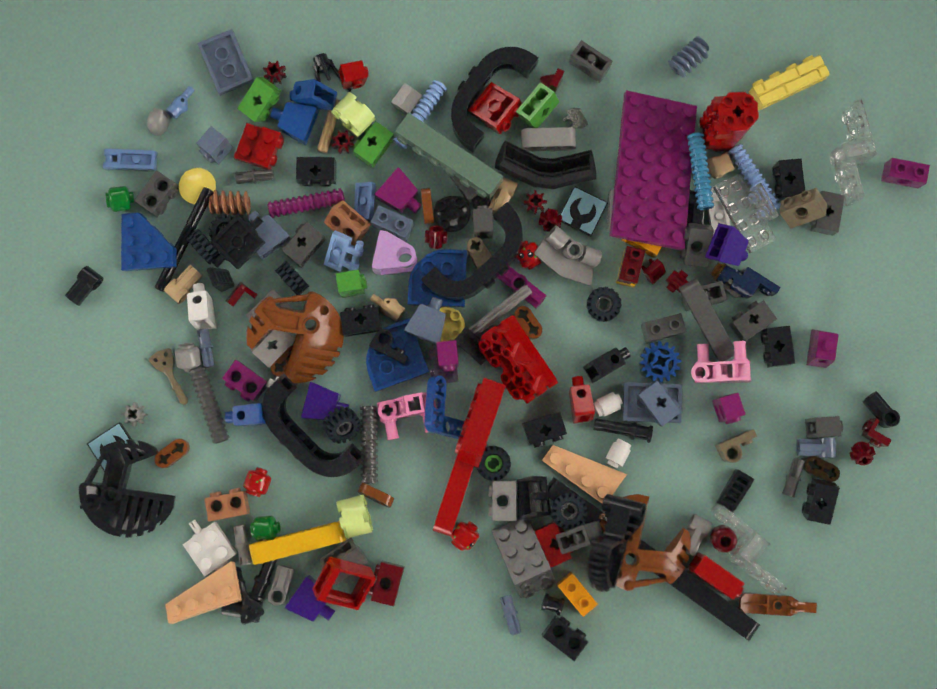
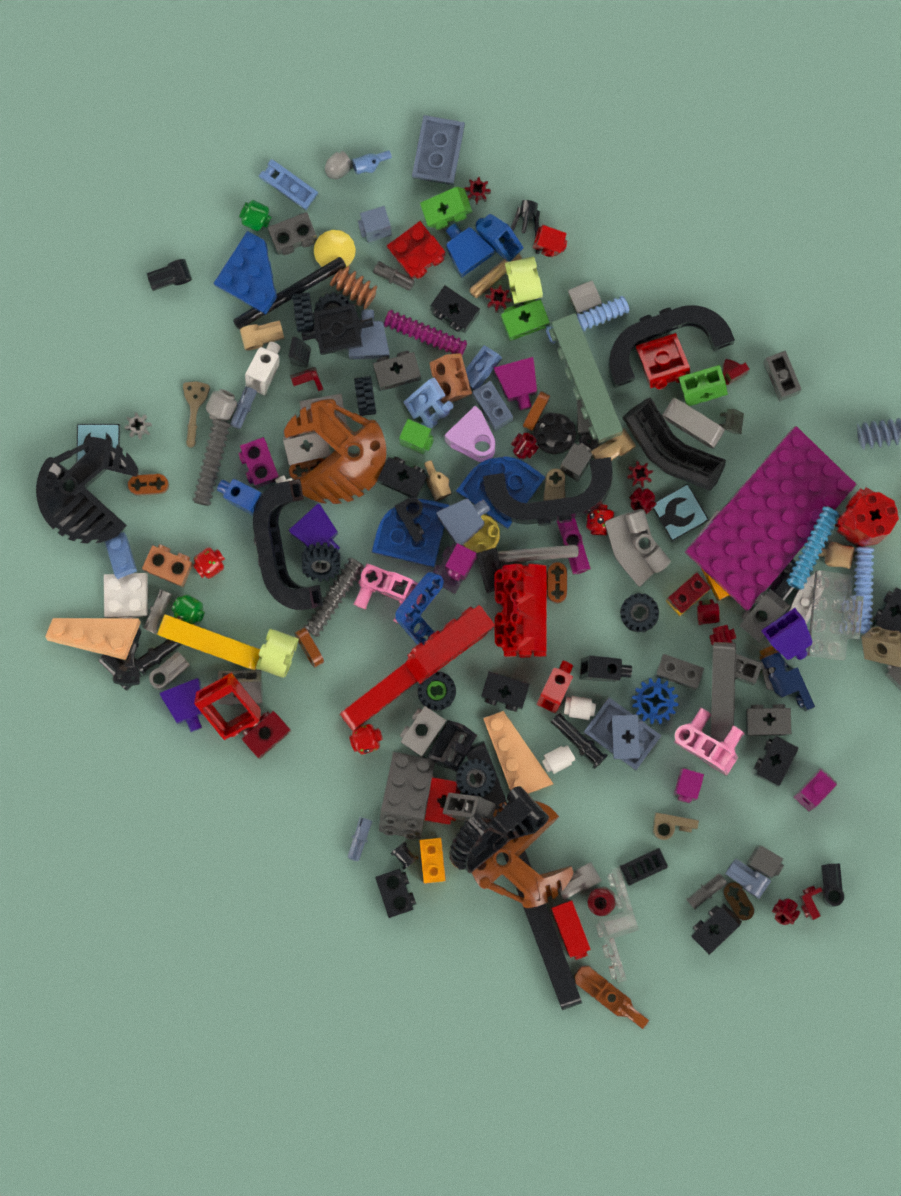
camera: 40 degrees right, 0 degrees up
(186, 522) = (121, 556): none -> medium blue plate

